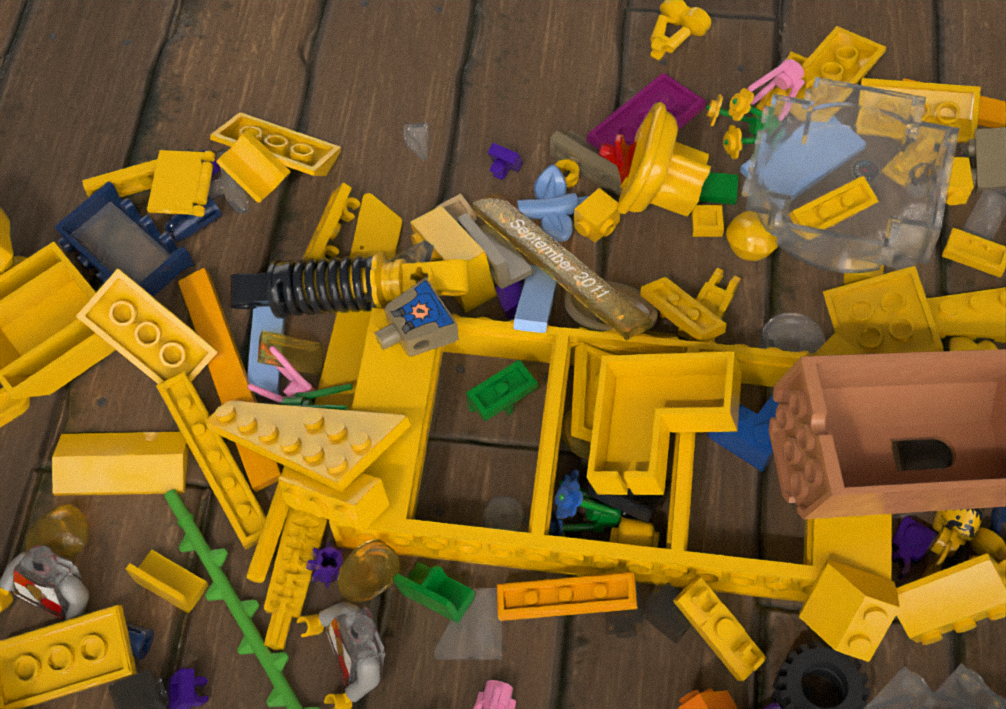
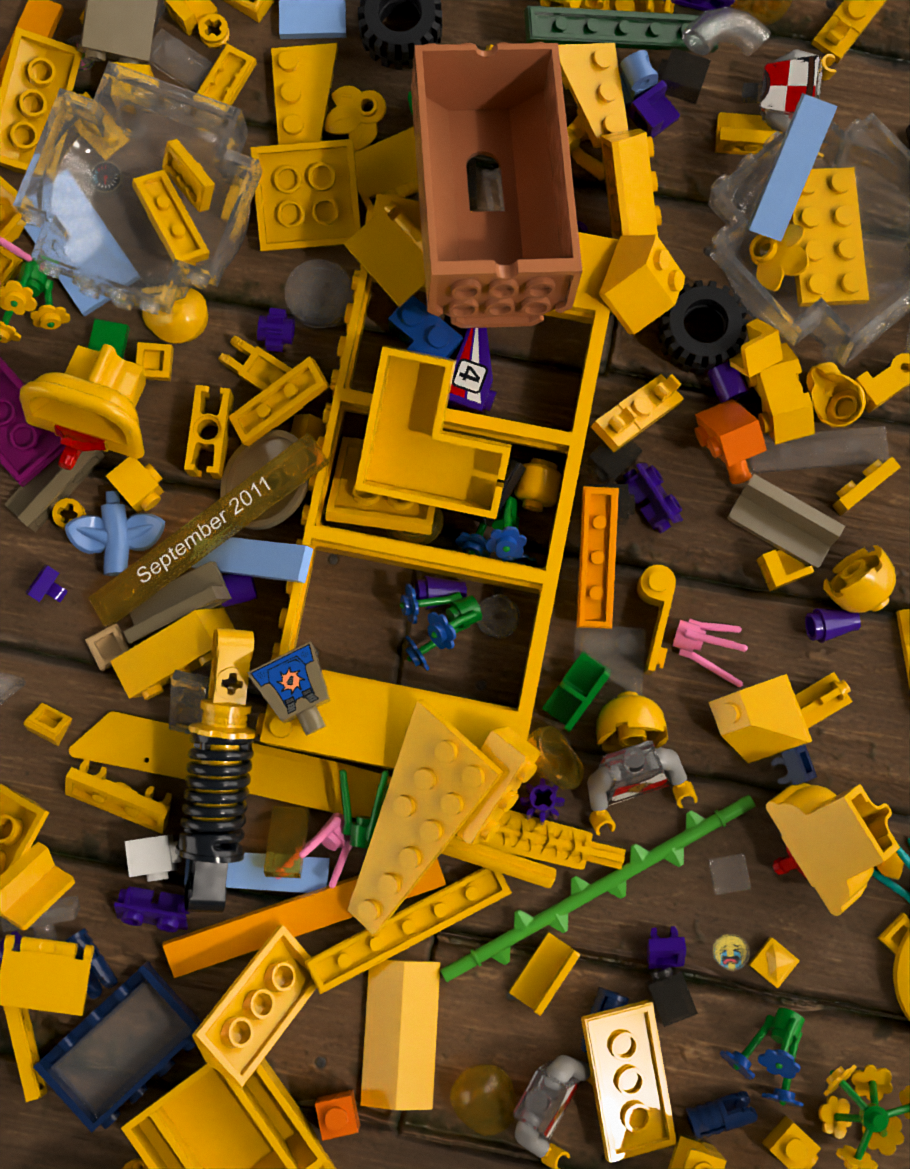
camera: 90 degrees left, 20 degrees up
(52, 411) = (337, 1115): none -> orange brick
(237, 249) = (139, 909): none -> dark purple hinge
(276, 246) = (152, 857): none -> white brick
(389, 175) = (48, 723): none -> yellow slope
(405, 640) = (630, 721): none -> yellow cylinder
(499, 479) = (460, 615): none -> plant
(501, 391) = (360, 606): green panel -> none
(522, 461) = (438, 587): none -> dark purple cone
(542, 664) = (657, 588): none -> yellow door
(629, 264) = (198, 422): none -> yellow piece
(650, 648) = (662, 506): none -> dark purple hinge
(735, 476) = (473, 375): none -> slope
(751, 308) = (276, 329): none -> dark purple gear
(878, 218) = (188, 175): none -> yellow plate
(943, 546) = (587, 193): yellow plate -> none

